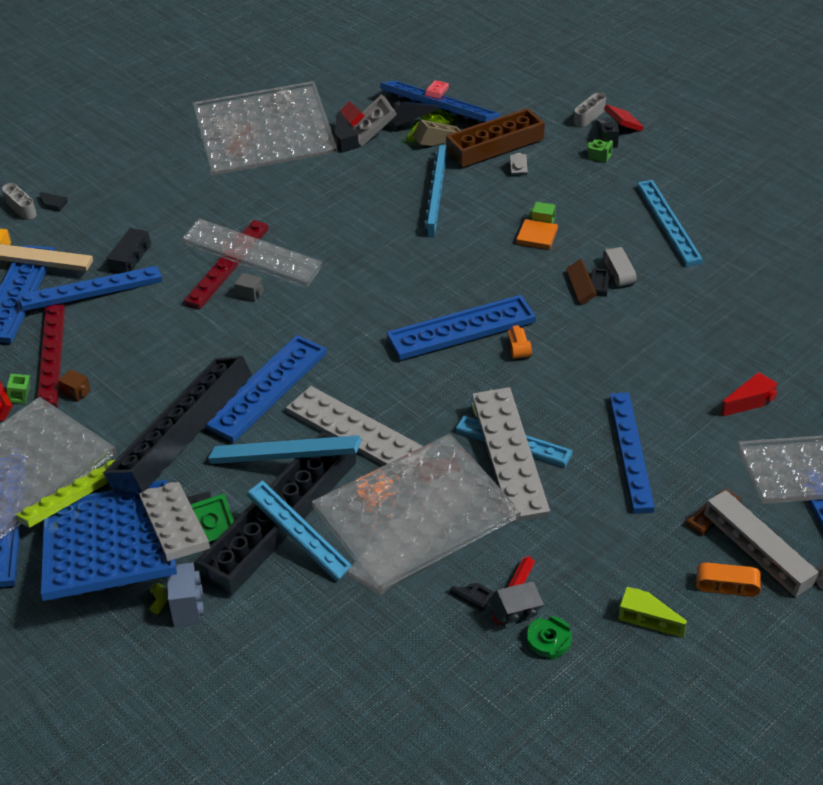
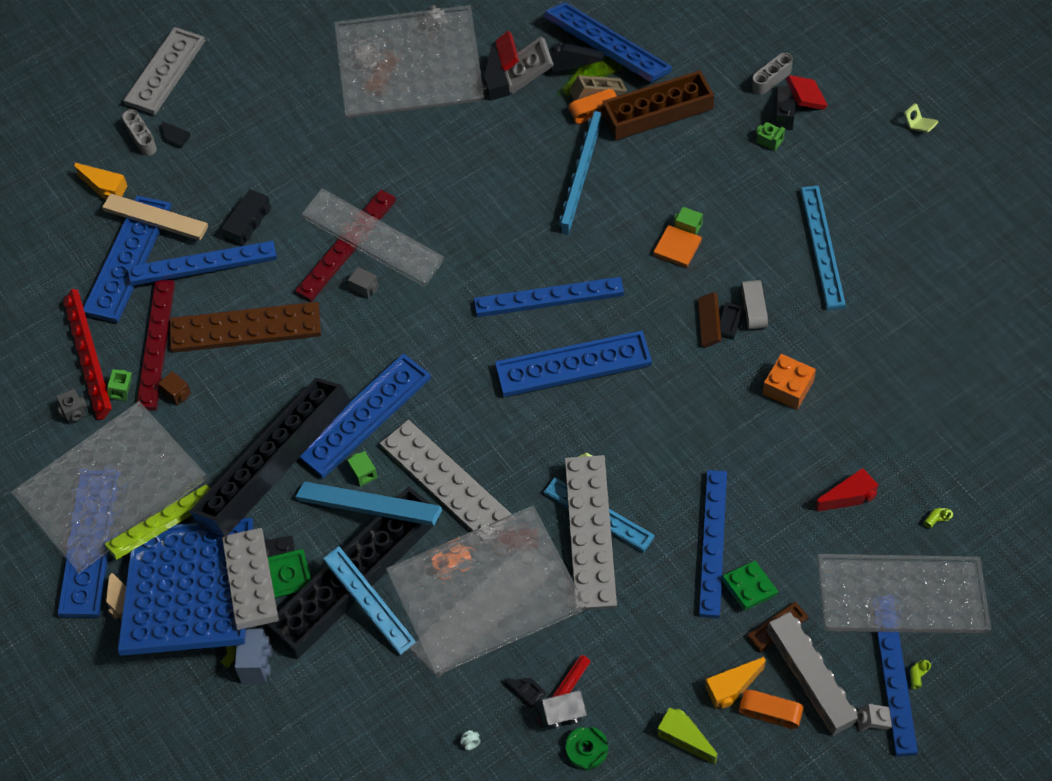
camera: 10 degrees right, 15 degrees up
(32, 563) = (115, 597): none -> tan slope
(38, 157) = (164, 71): none -> light grey plate
(138, 333) = (245, 327): none -> reddish brown plate
(272, 427) = (362, 468): none -> bright green brick
(426, 282) = (549, 296): none -> blue plate
(426, 645) = (470, 740): none -> light aqua plate
(428, 147) = (584, 108): none -> orange beam
(437, 89) = (607, 24): coral tile -> none
(518, 164) = (676, 145): light grey bracket -> none
(518, 343) = (628, 397): orange piece -> none
(668, 317) = (789, 381): none -> orange brick
(677, 479) = (749, 585): none -> green plate
(682, 562) = (729, 685): none -> light orange slope
(725, 131) = (919, 123): none -> yellowish green bracket

